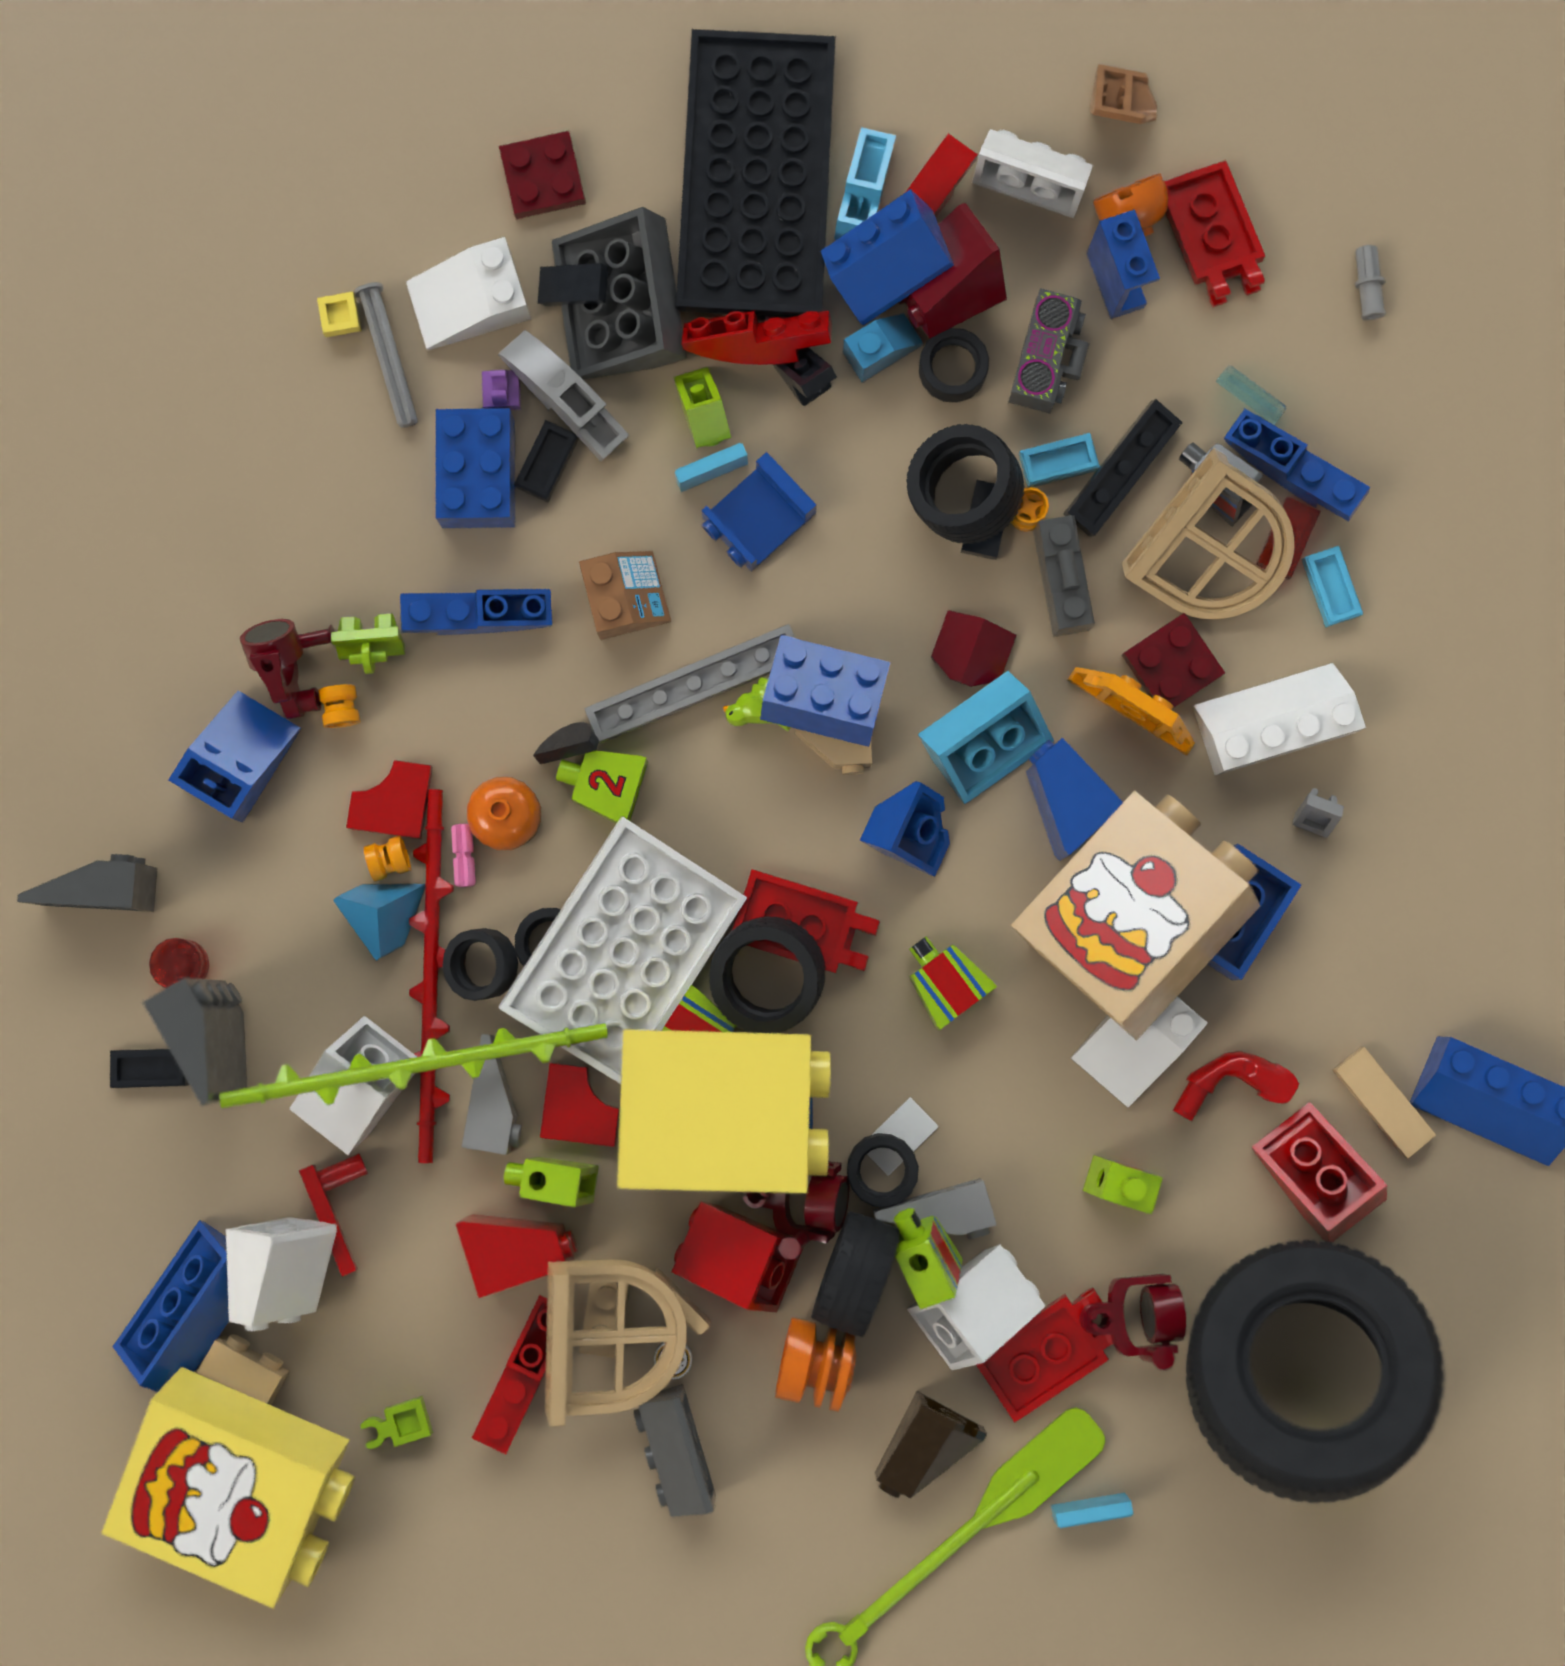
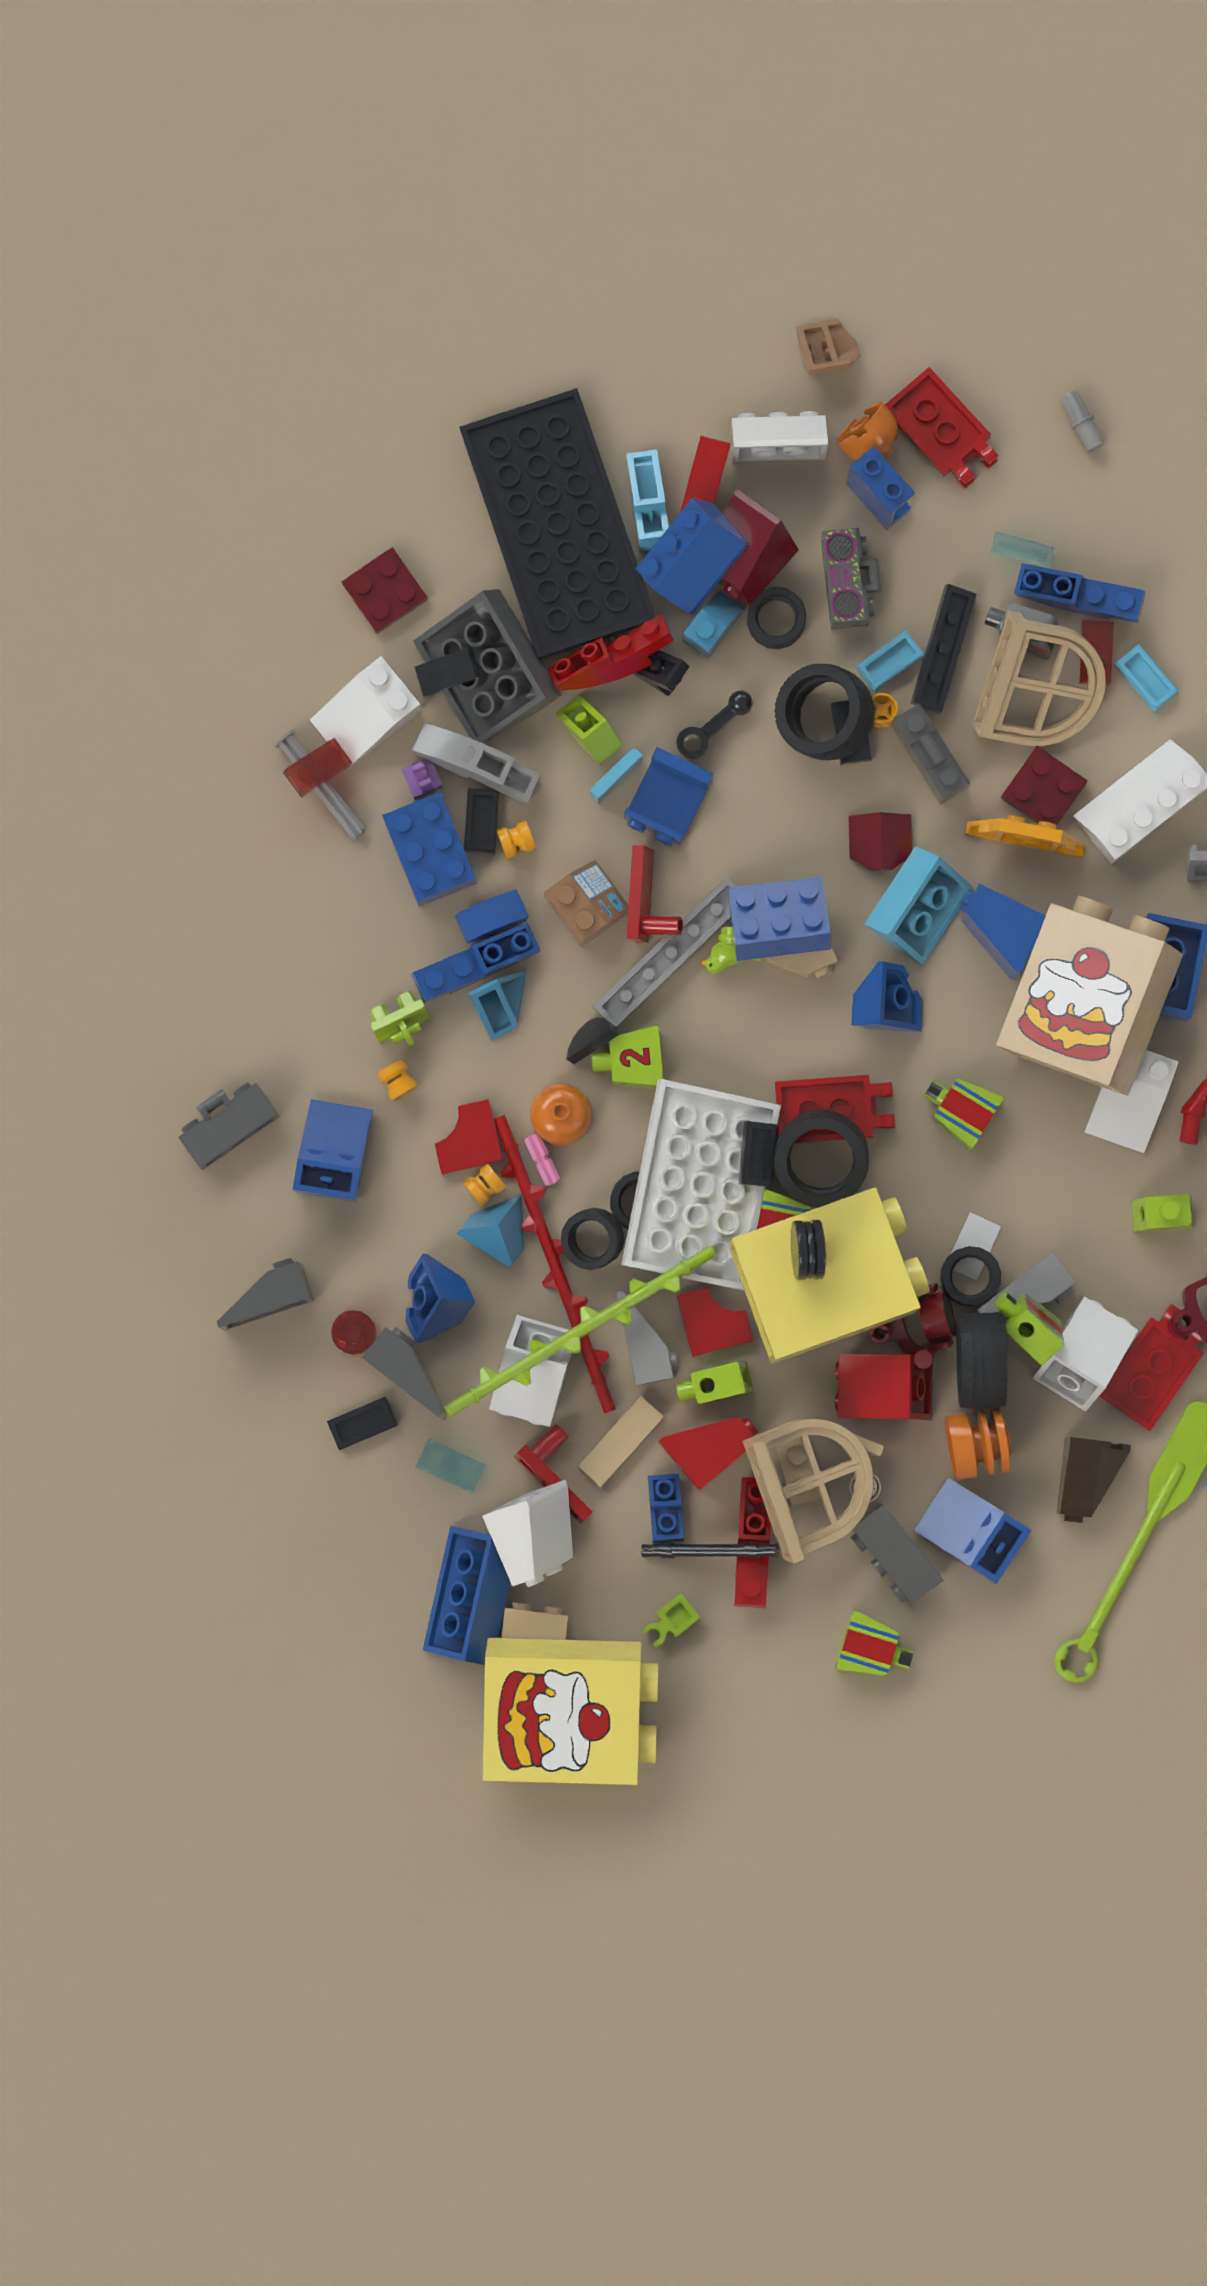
camera: 15 degrees left, 0 degrees up
(121, 690) = (218, 1135): none -> dark grey piece
(226, 1153) = (450, 1465): none -> clear light blue plate
(273, 652) = (332, 1055): dark red piece -> none
(285, 965) = (438, 1299): none -> blue slope
(339, 314) = (268, 767): light yellow plate -> none
(389, 332) = (317, 767): none -> clear red plate
(423, 1200) = (620, 1441): none -> tan tile
(443, 1295) = (666, 1508): none -> blue slope
(484, 665) = (499, 1003): none -> dark azure slope
(509, 1383) = (747, 1550): none -> black piece
(514, 566) = (491, 915): none -> blue slope
(574, 495) = (516, 839): none -> light orange wheel
(606, 1545) = (871, 1647): none -> torso
(673, 634) = (639, 921): none -> red piece
(699, 942) = (757, 1154): none -> black tile
(702, 1079) = (808, 1249): none -> black head
(772, 1460) = (972, 1530): none -> slope
(876, 442) = (738, 704): none -> black piece

